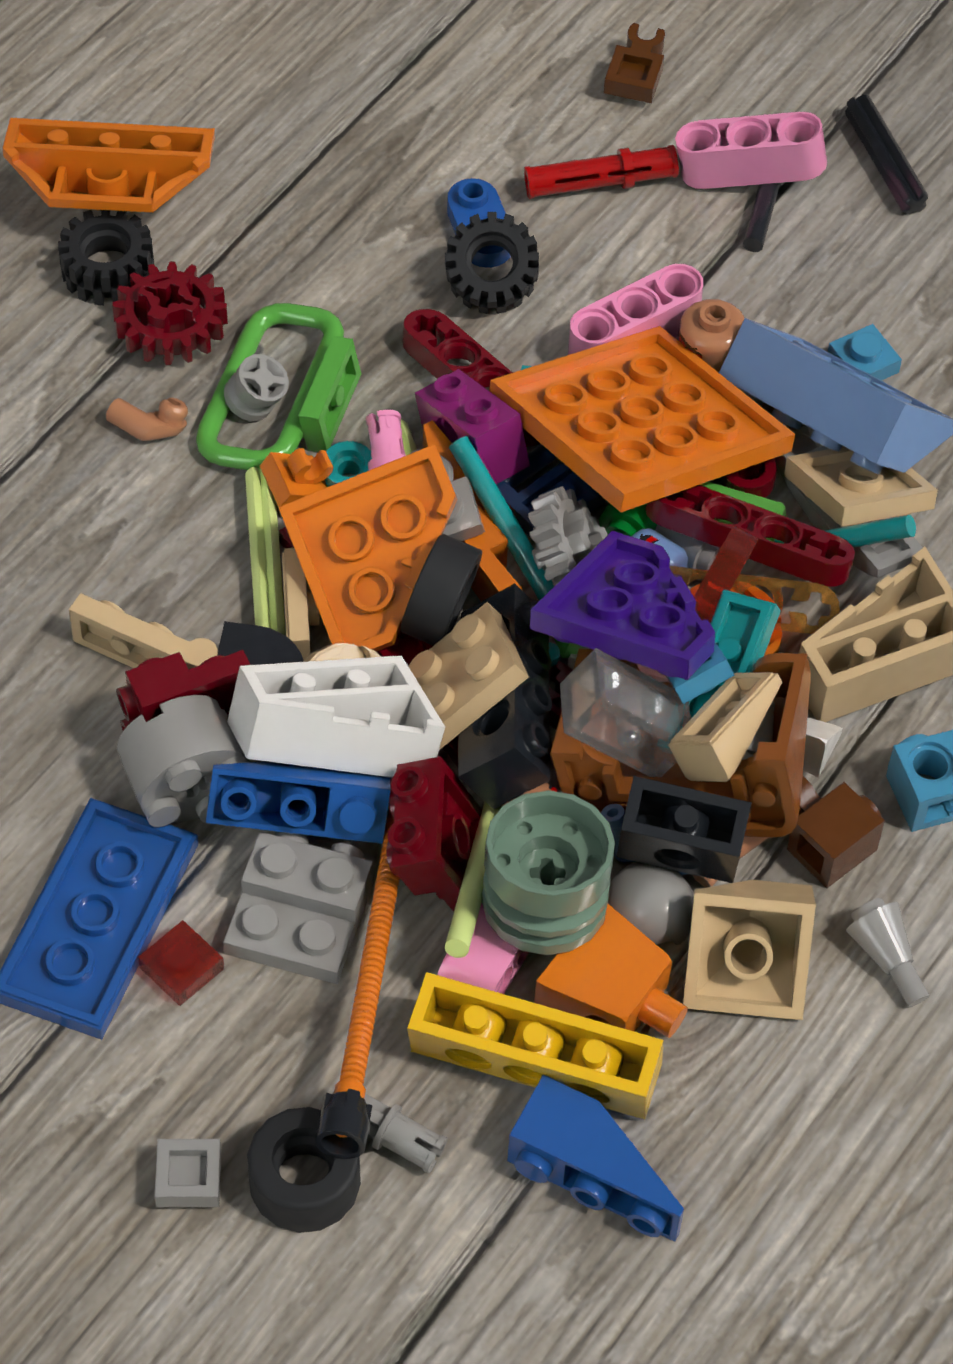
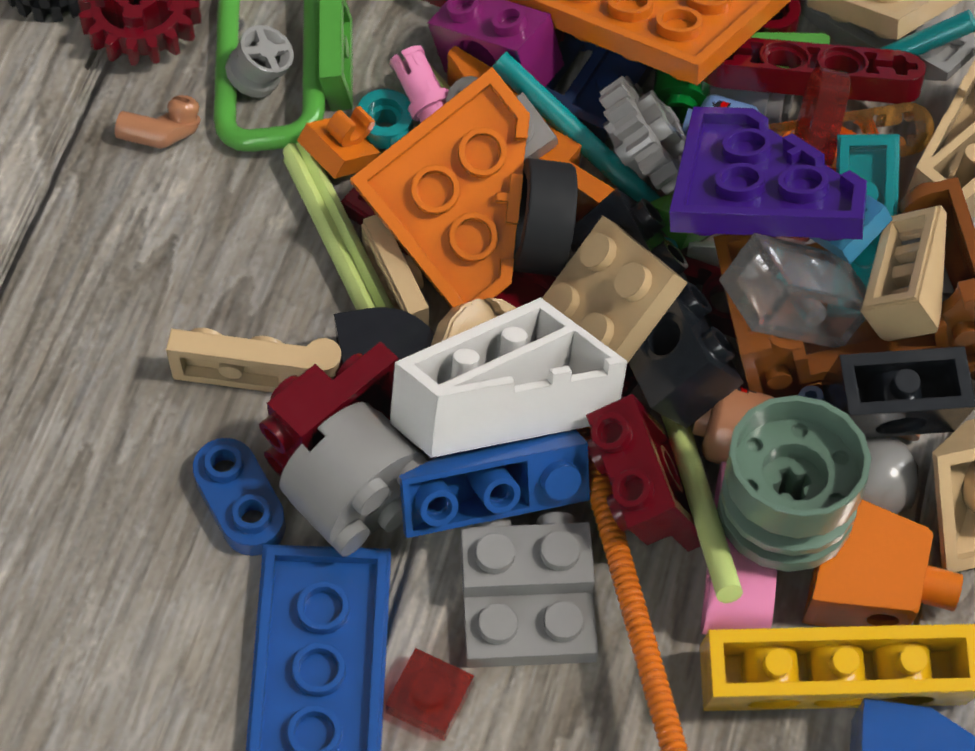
camera: 20 degrees left, 5 degrees up
(87, 749) = (237, 492): none -> blue plate

